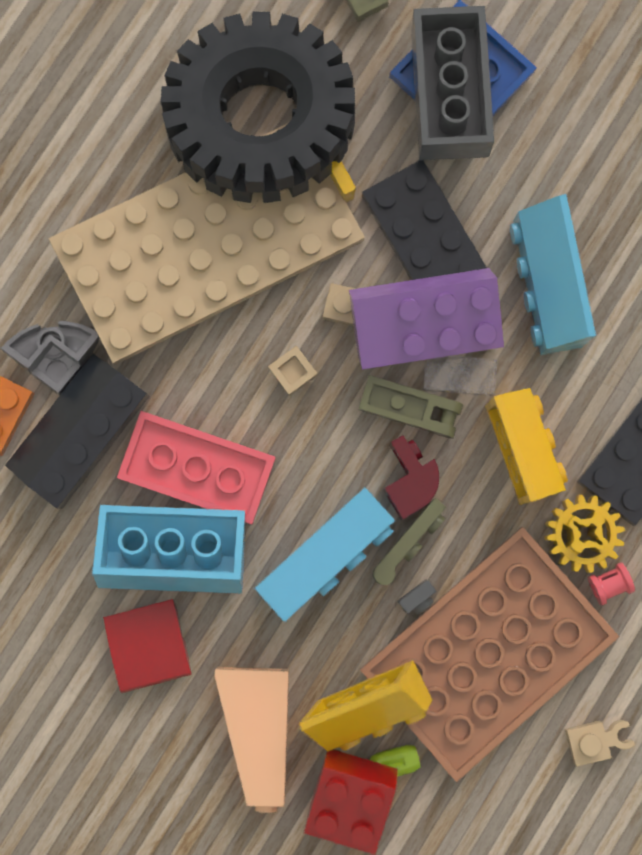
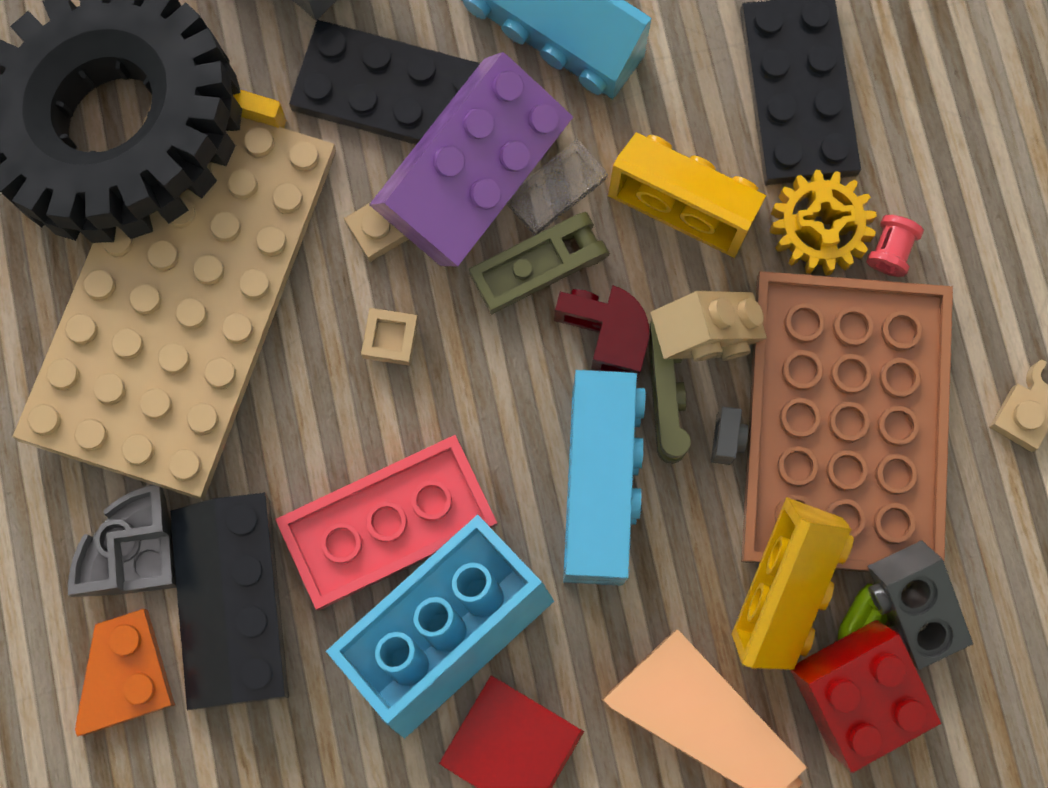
camera: 45 degrees left, 5 degrees down
(425, 791) = (926, 601): none -> dark grey brick
(462, 531) = (709, 325): none -> tan brick

